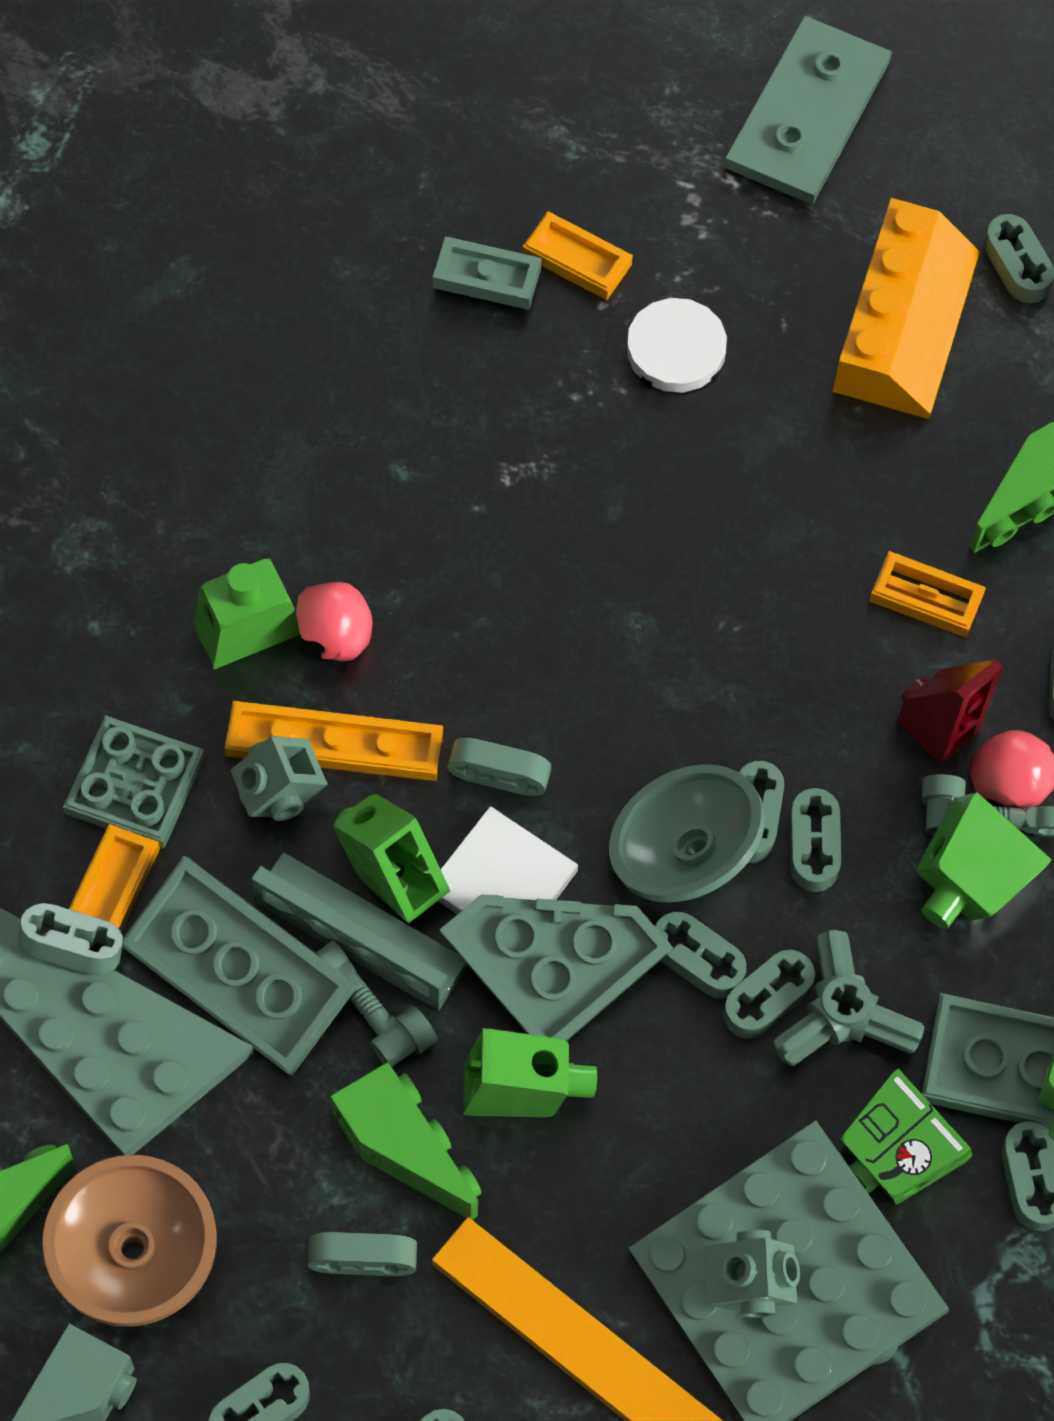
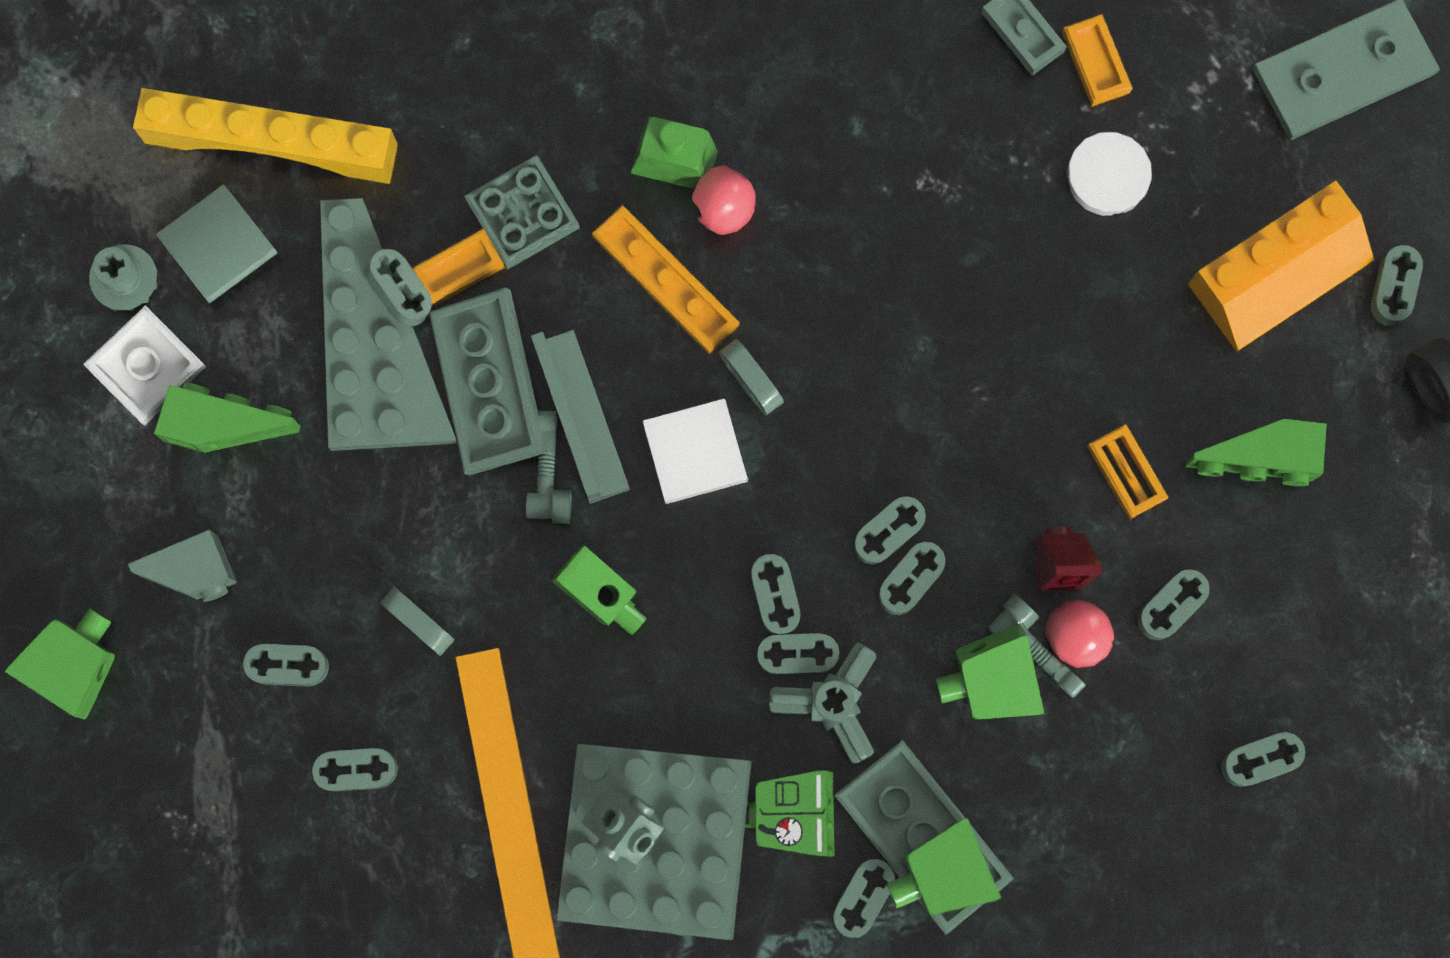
camera: 40 degrees right, 15 degrees up
(124, 1204) = (261, 488): medium nougat dish -> none
(278, 777) = (604, 280): sand green brick -> none
(383, 835) = (629, 365): bright green torso -> none
(393, 1135) = (494, 558): bright green slope -> none
(554, 958) = (679, 530): sand green plate -> none
(687, 833) = (823, 499): sand green dish -> none

